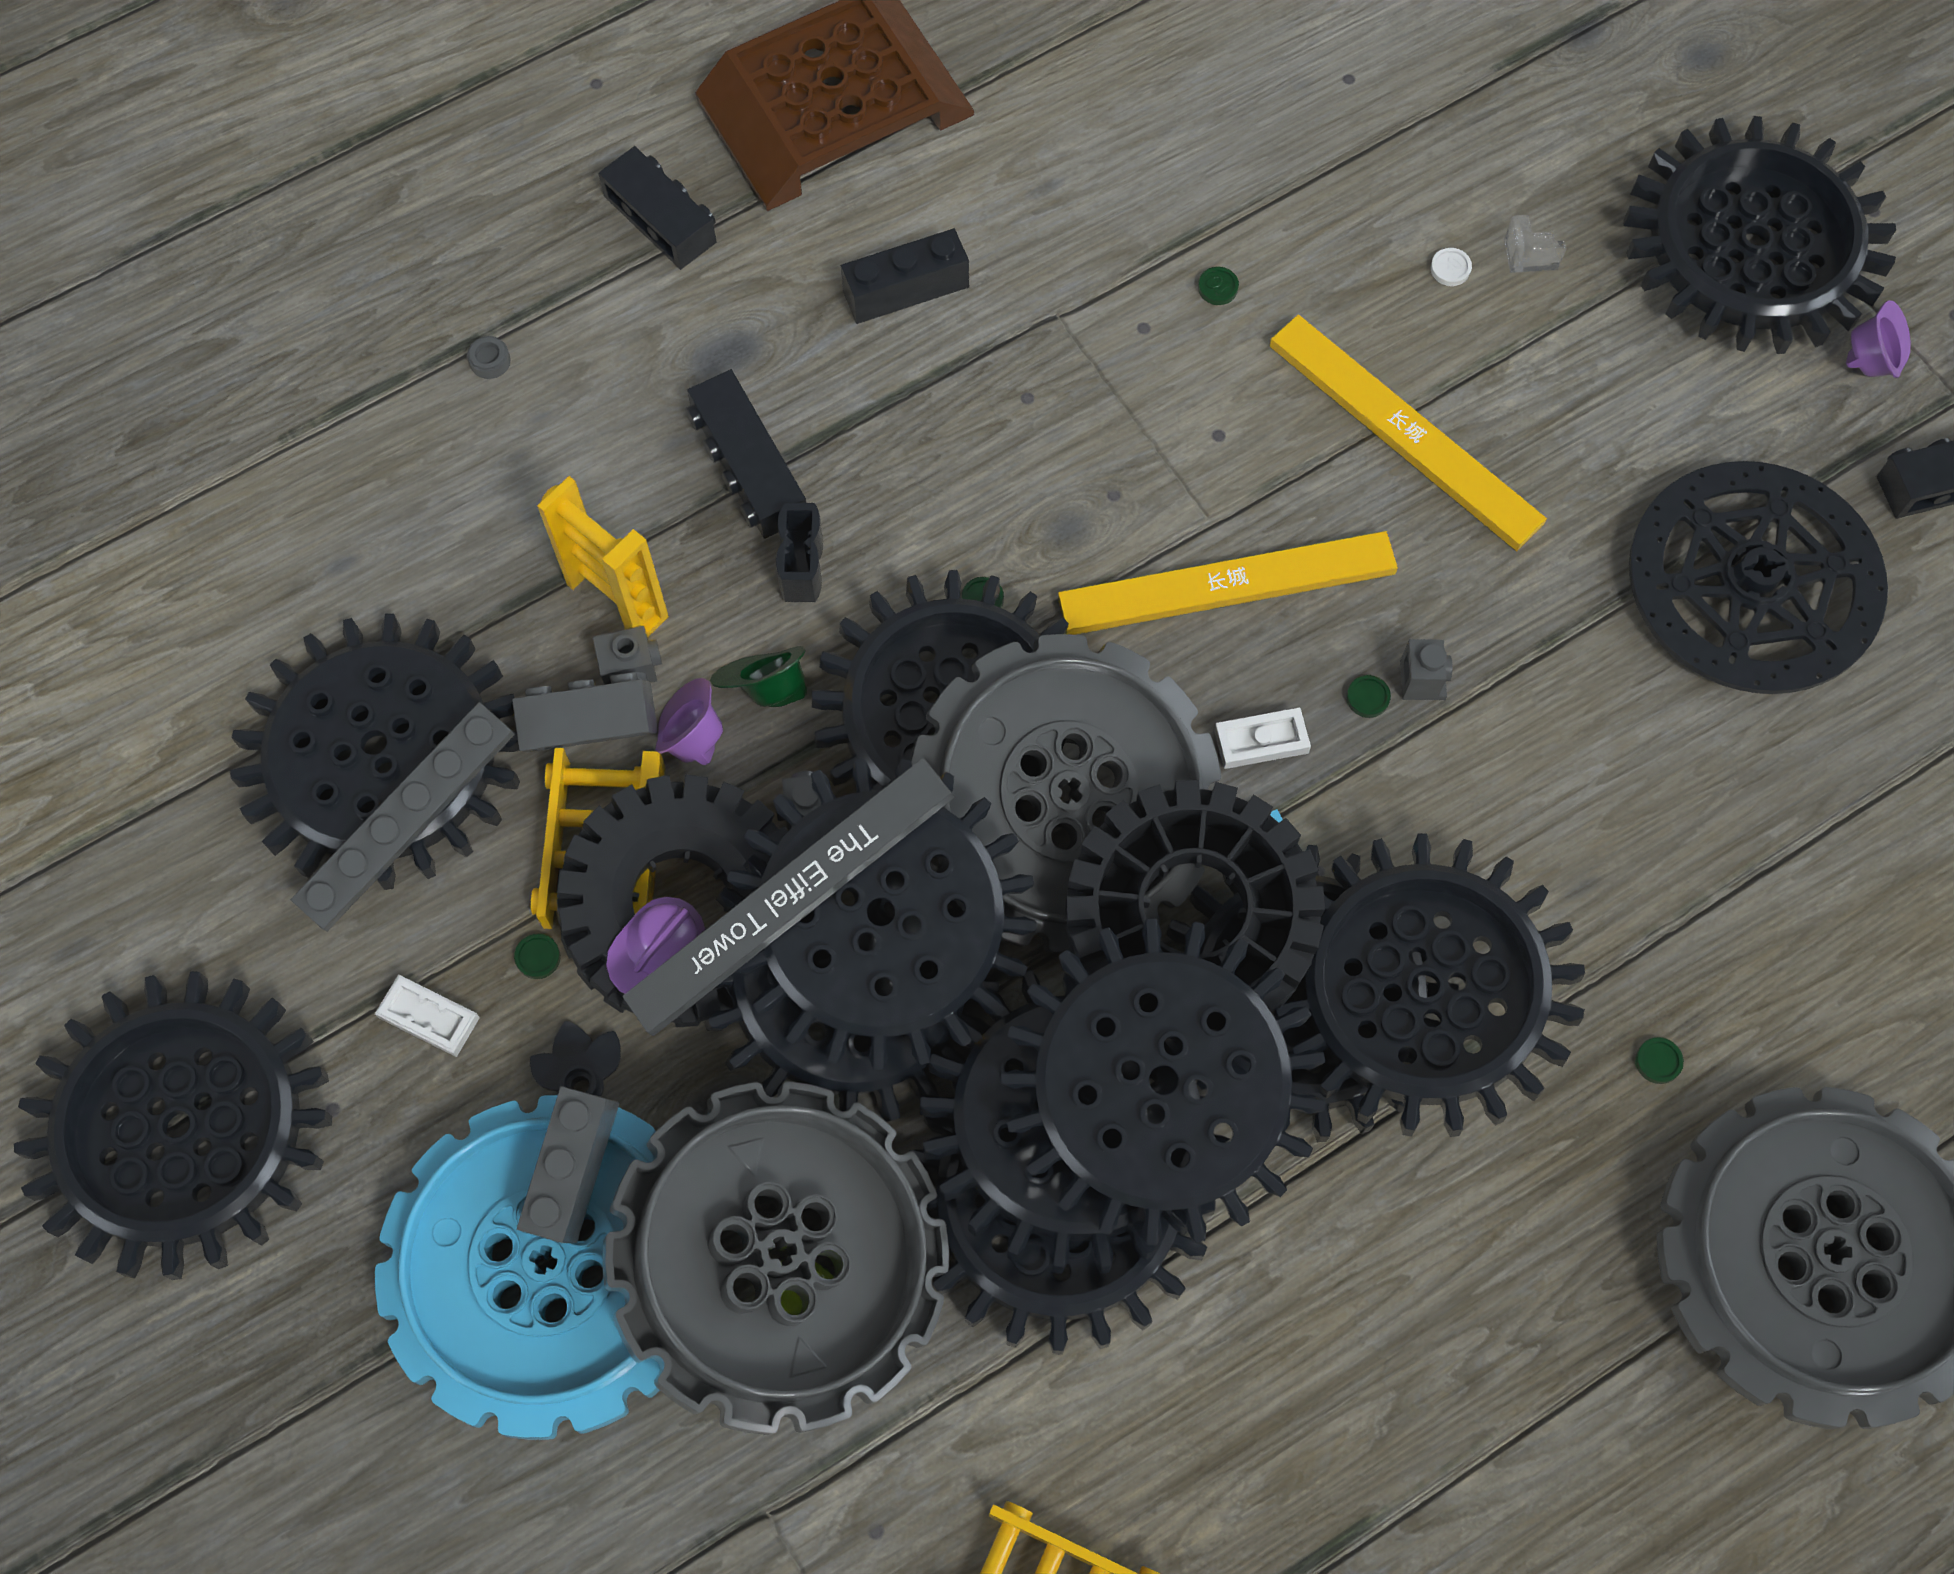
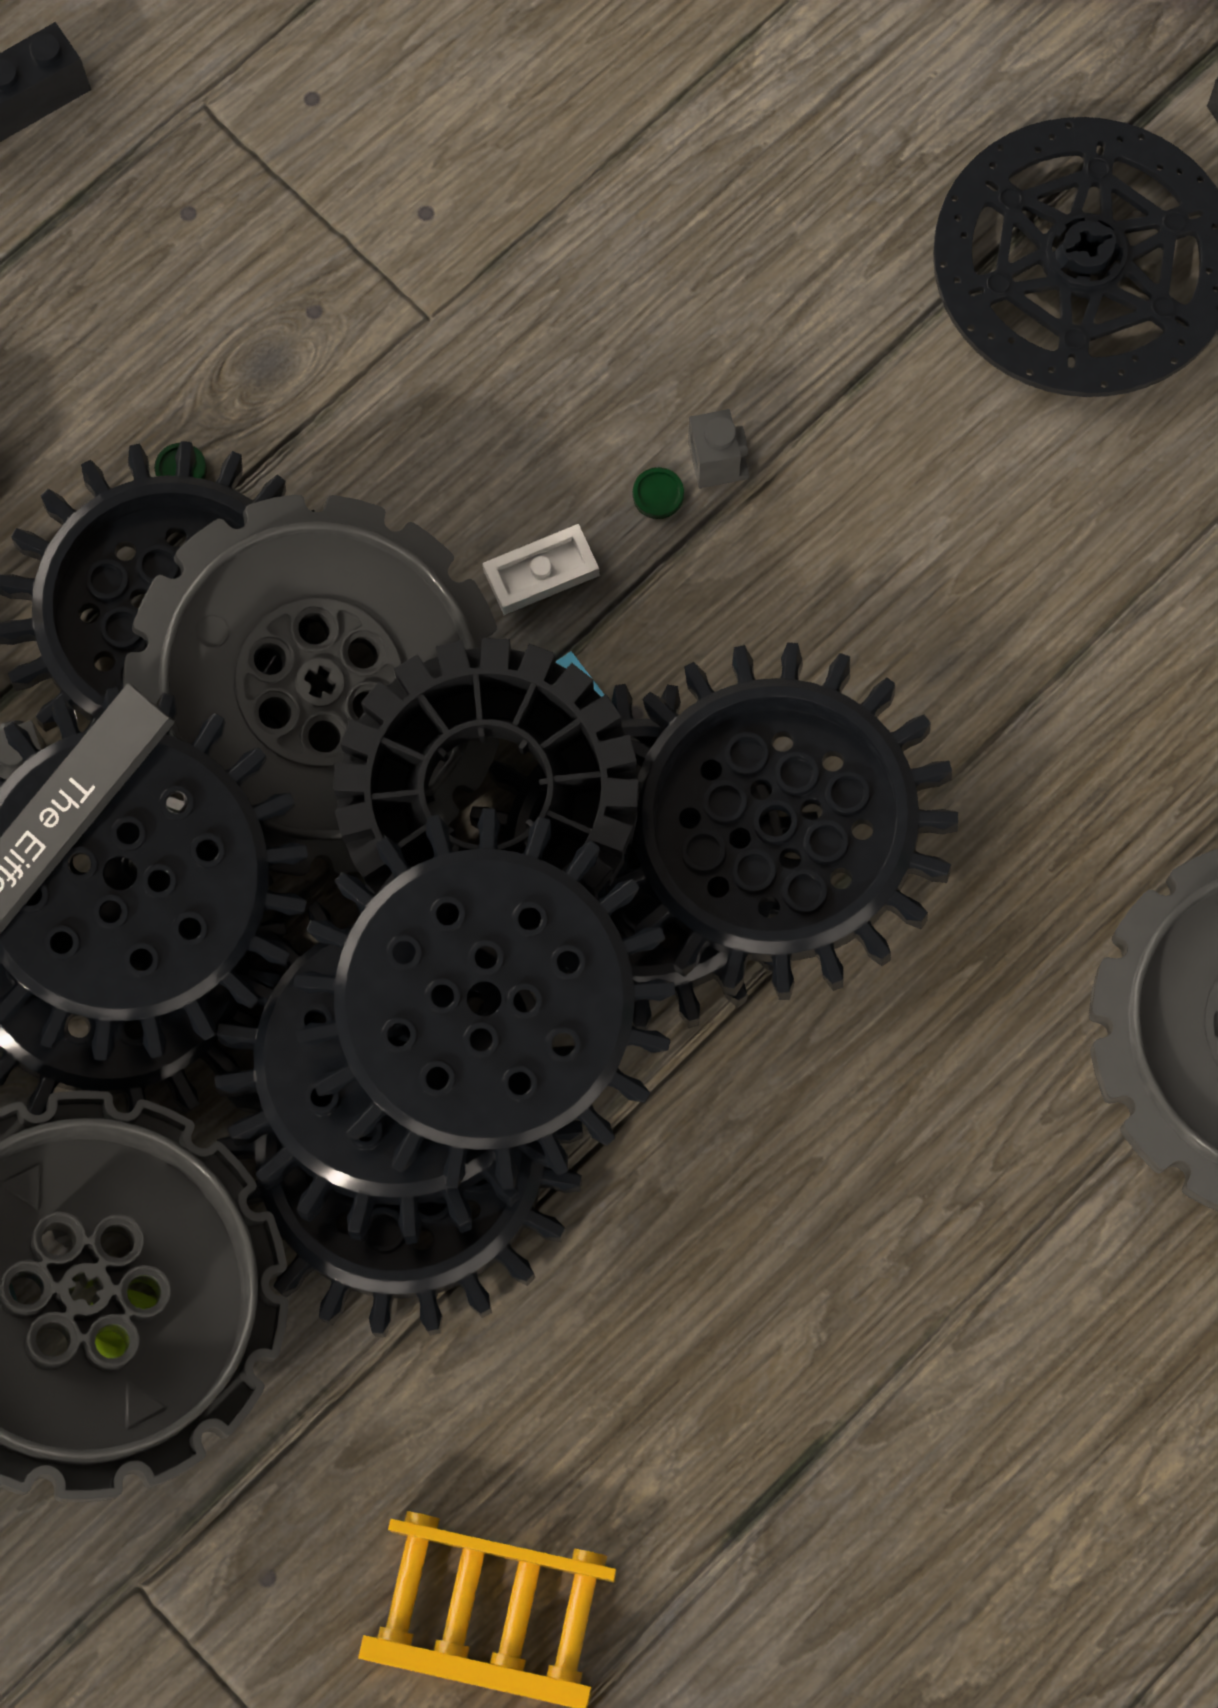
camera: 10 degrees left, 5 degrees up
(1218, 285) = (391, 28): dark green piece -> none
(1227, 583) = (466, 391): yellow tile -> none
(1408, 432) = (647, 164): yellow tile -> none
(1659, 1060) = (1064, 849): dark green piece -> none

